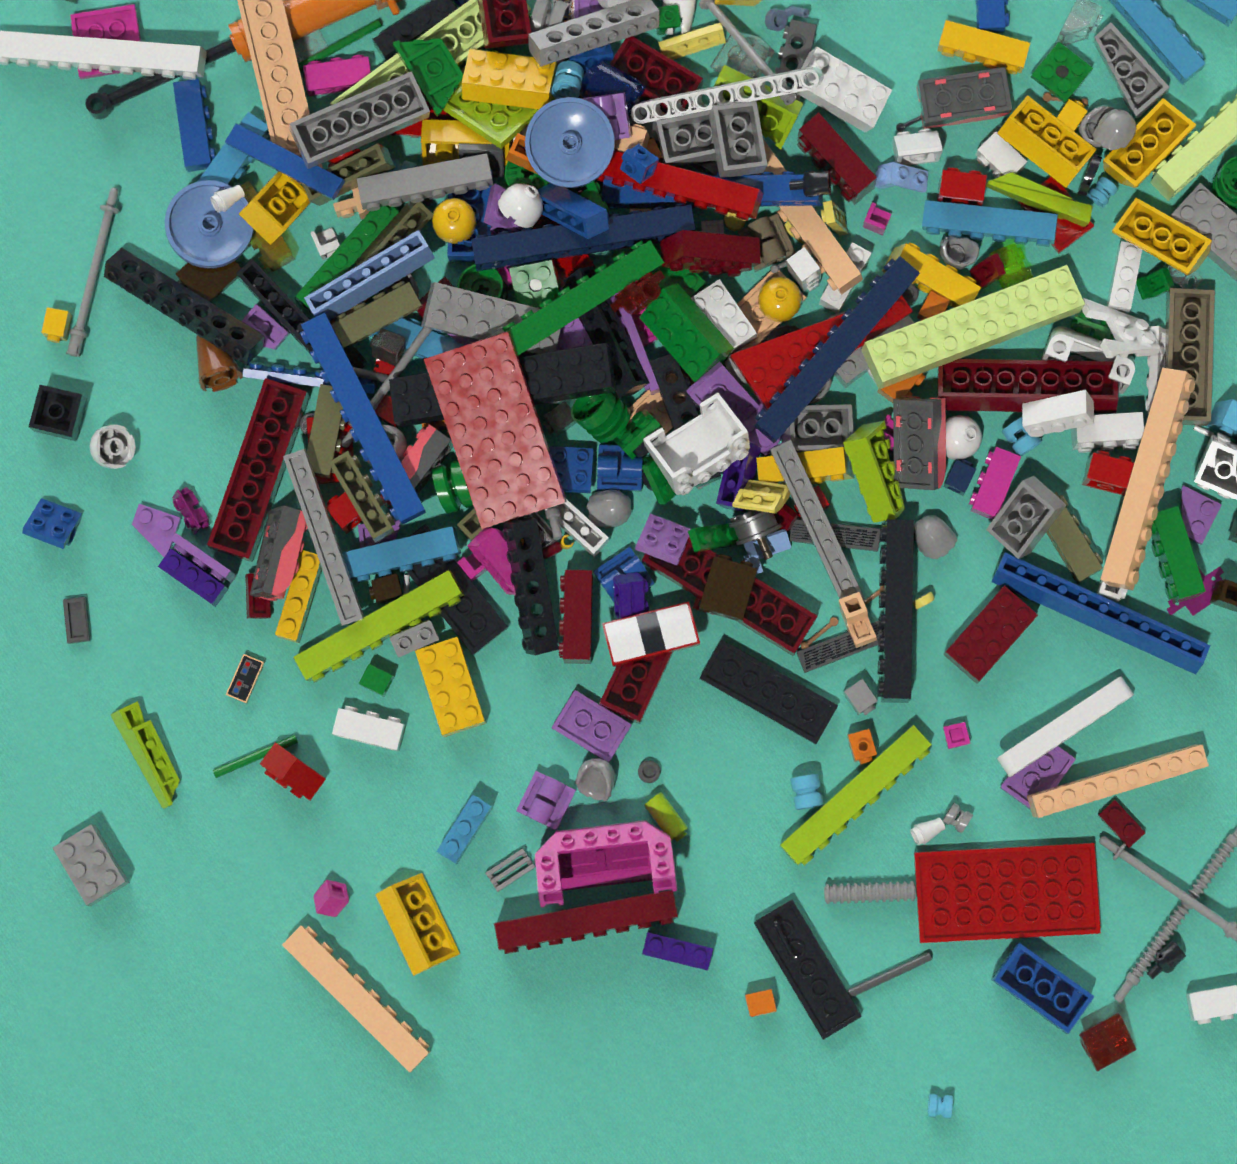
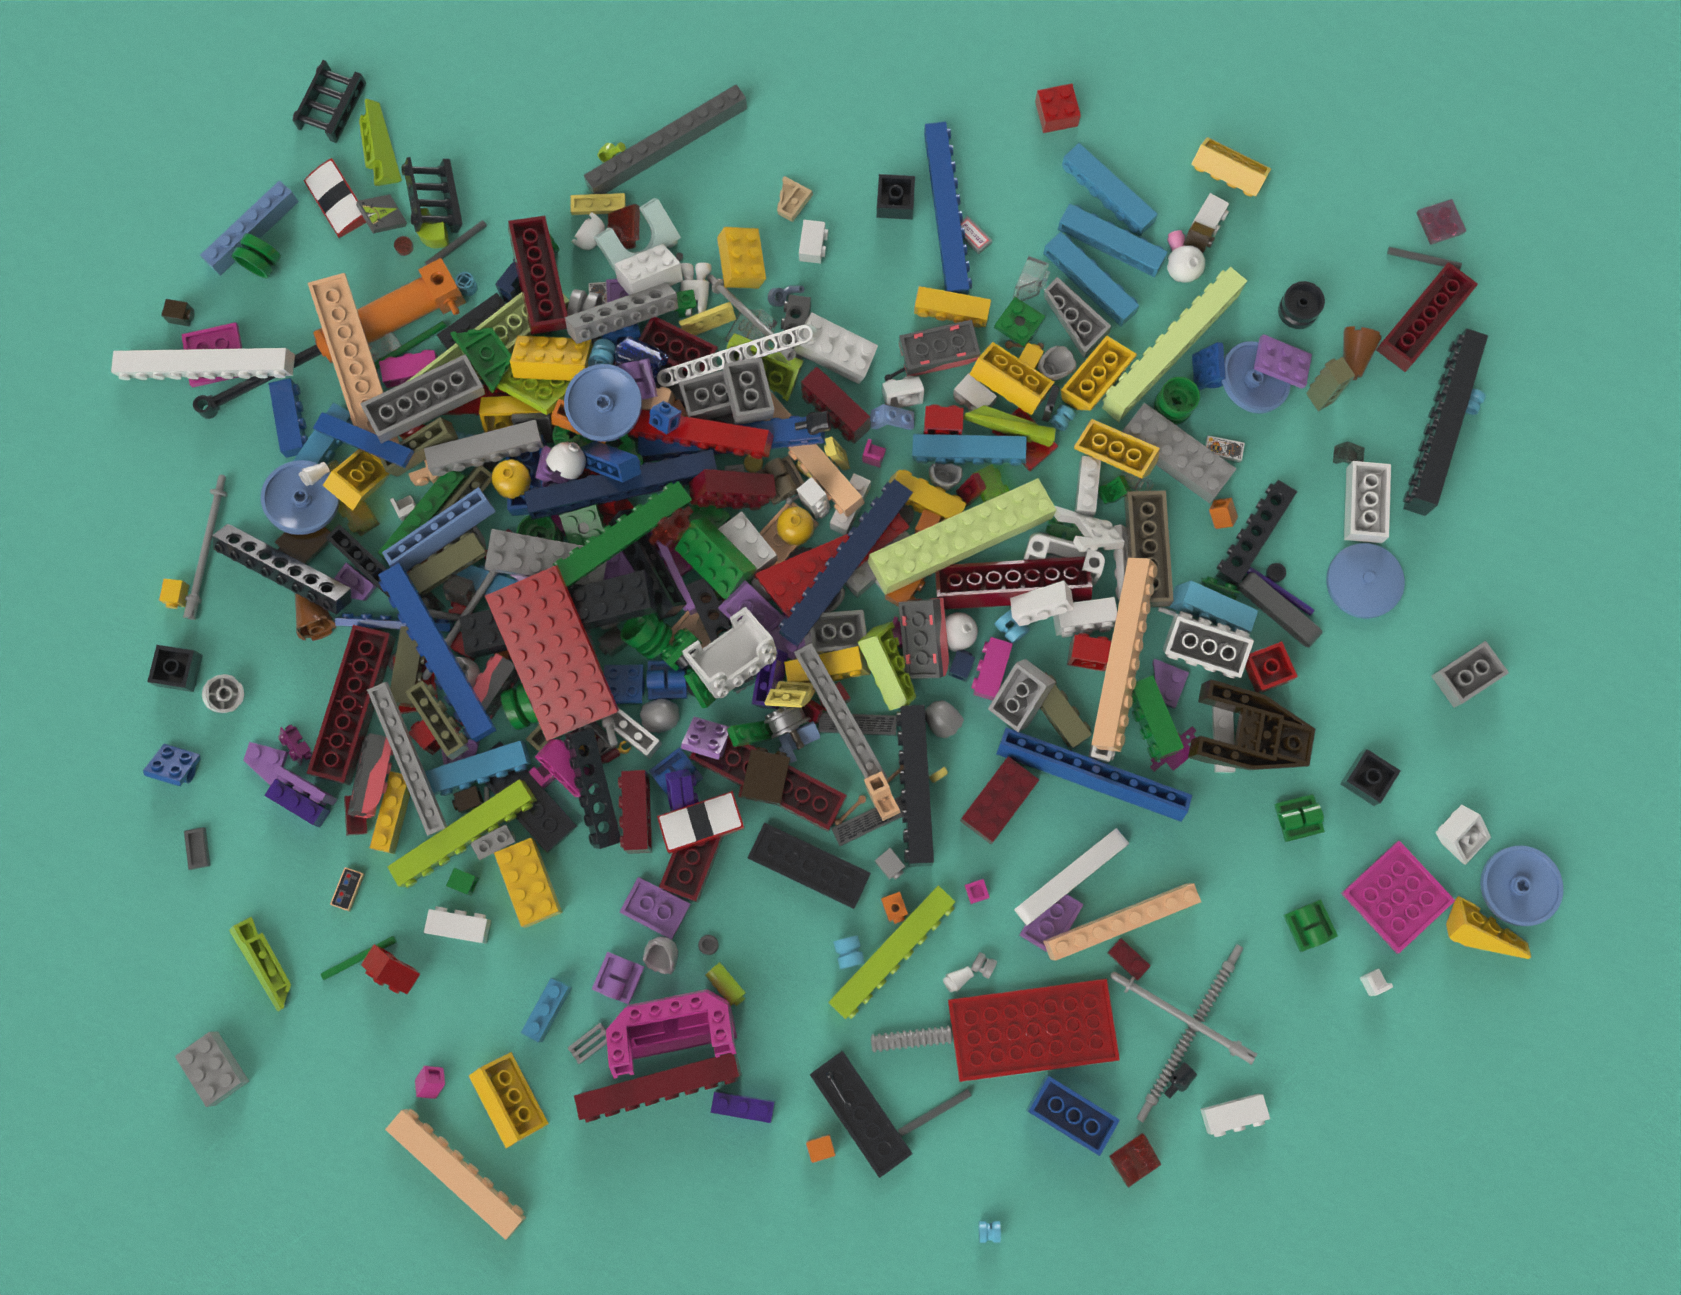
camera: 10 degrees left, 5 degrees down
(1115, 129) = (1068, 363): light grey hair -> none

